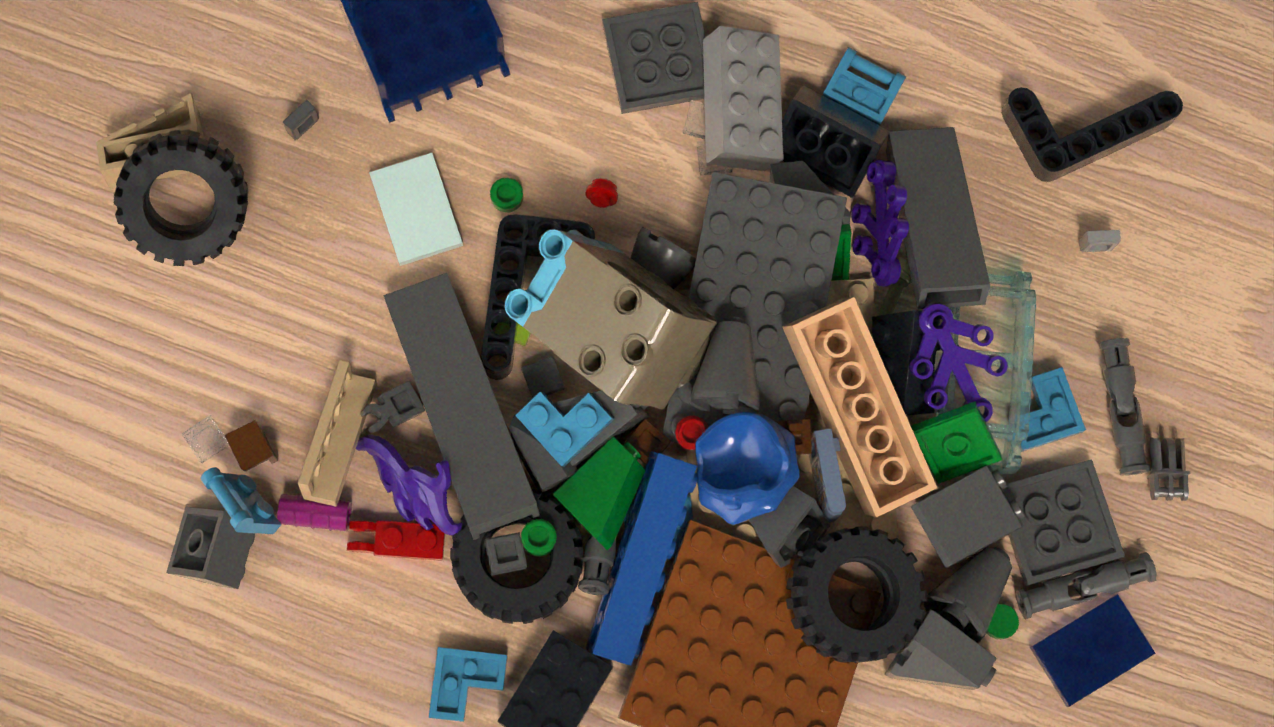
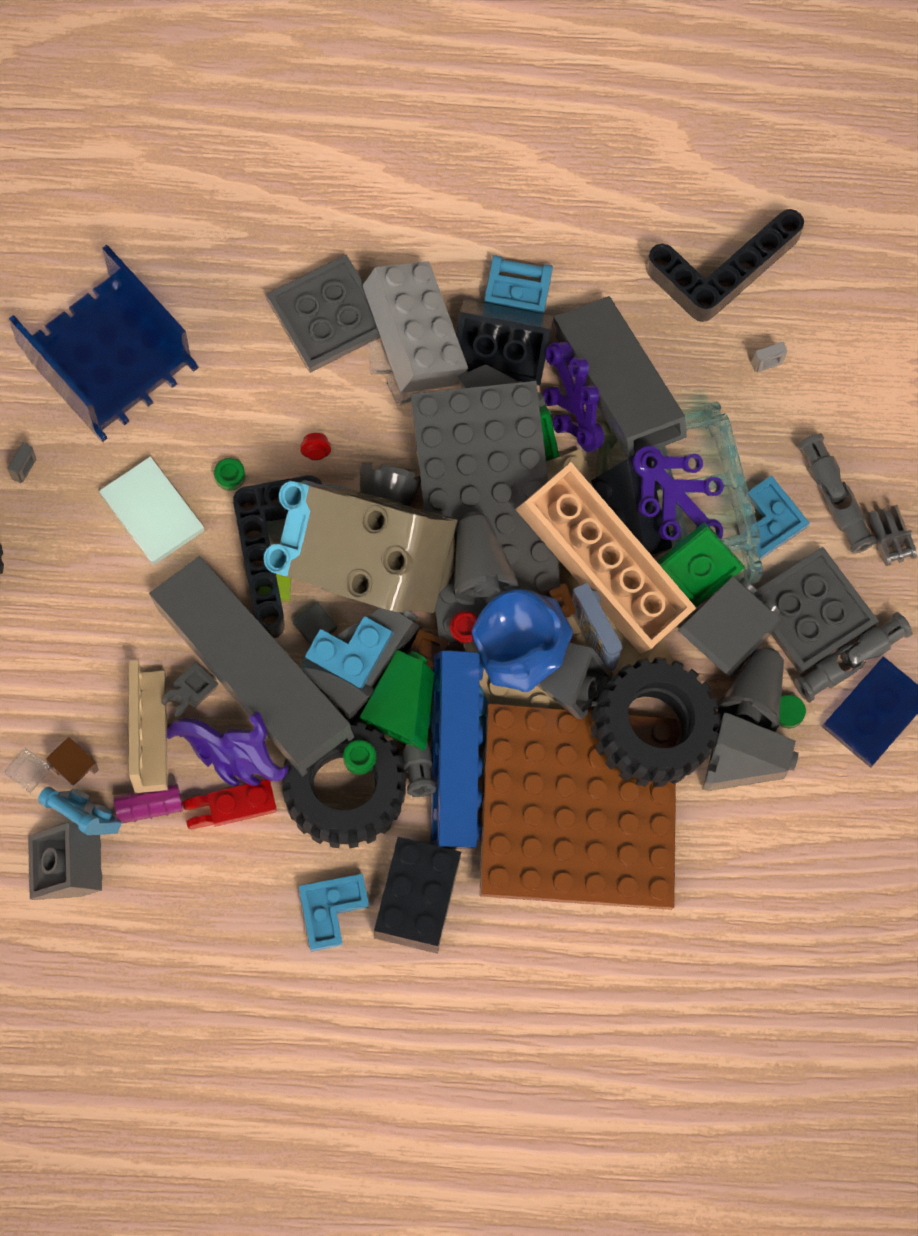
camera: 15 degrees left, 5 degrees down
(505, 553) = (334, 780): dark grey tile -> none

